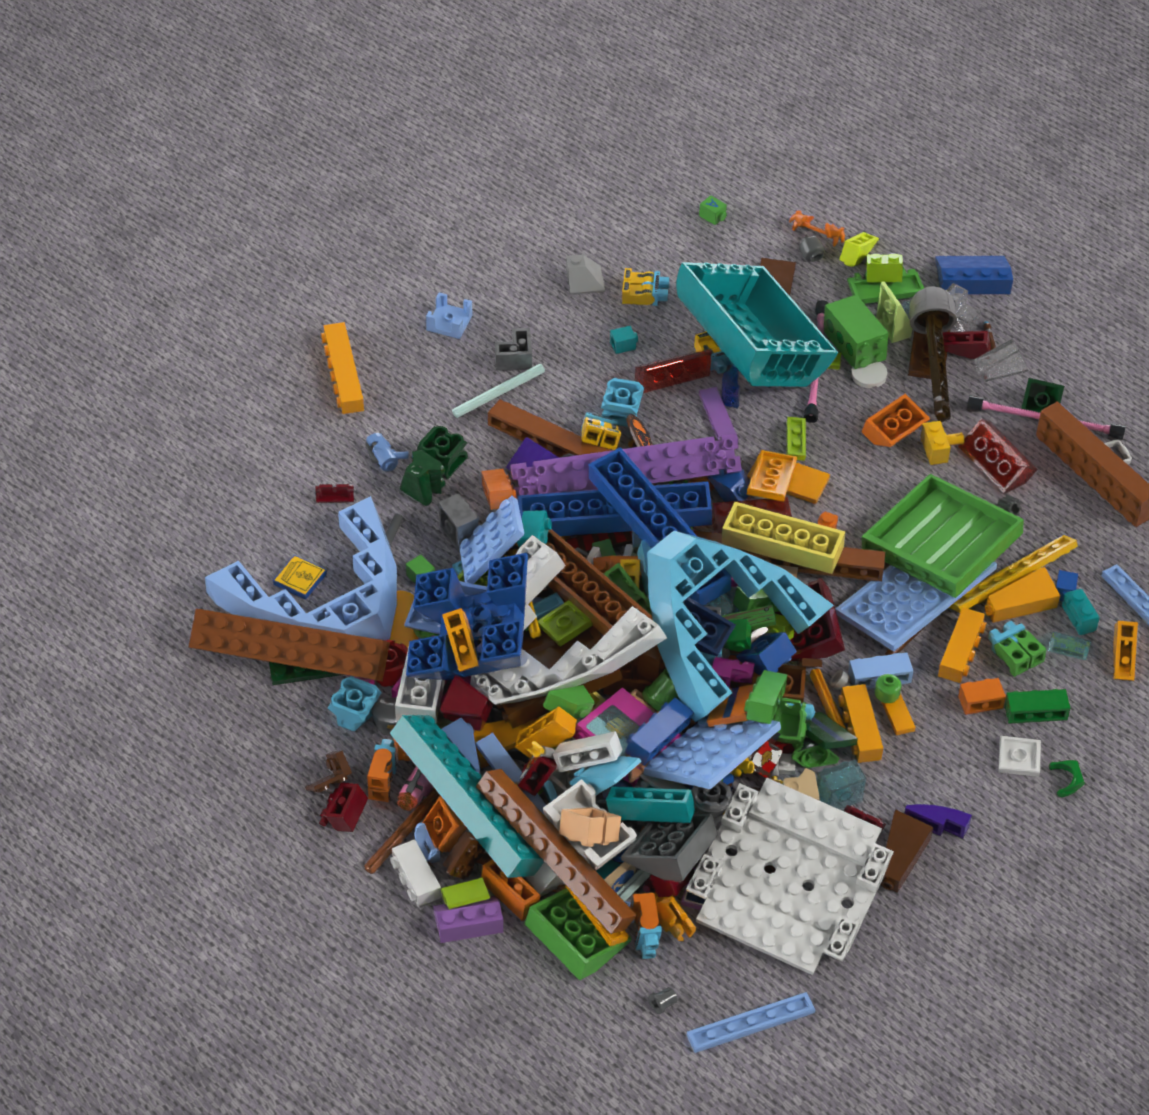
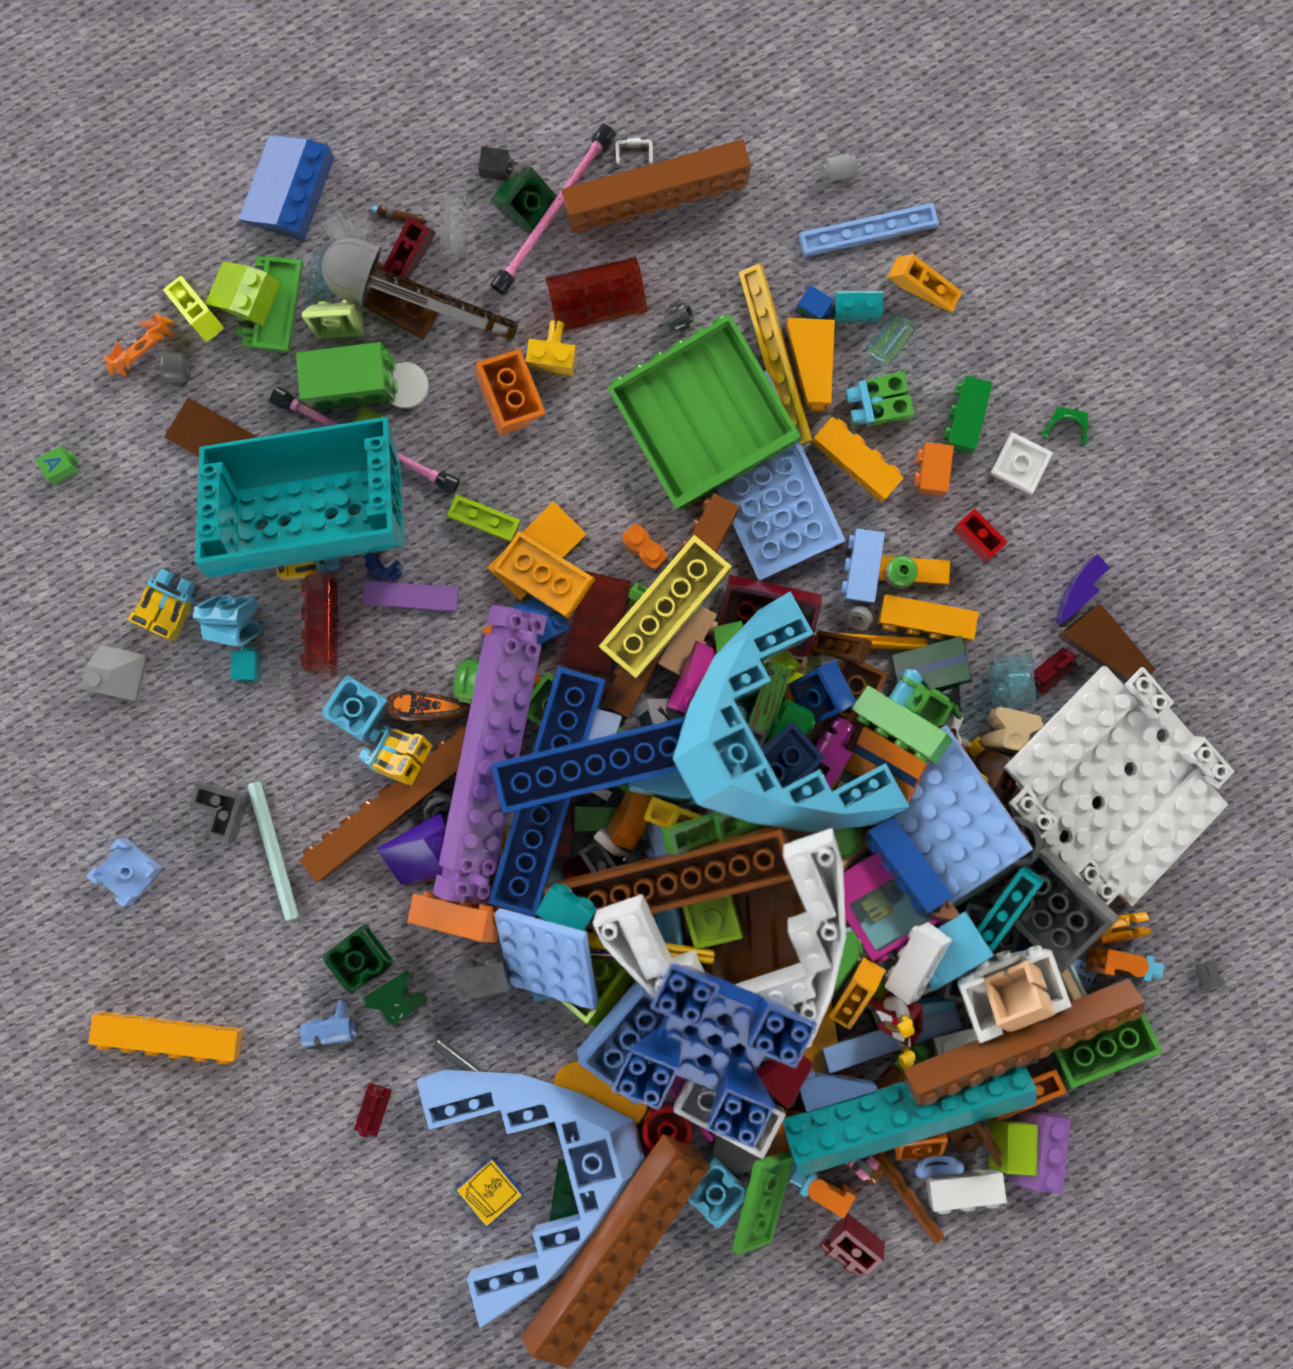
camera: 70 degrees left, 35 degrees up
(338, 764) = (810, 1250): reddish brown bracket -> none
(357, 728) = (762, 1202): none -> bright green plate
(418, 566) = (537, 1045): bright green brick -> none
(461, 639) = (738, 1072): light orange slope -> none
(651, 319) = (228, 620): none -> medium azure piece
(750, 1022) = (1258, 891): light blue tile -> none
(944, 735) = (980, 535): none -> red brick
(1058, 373) = (495, 163): none -> pearl dark grey brick

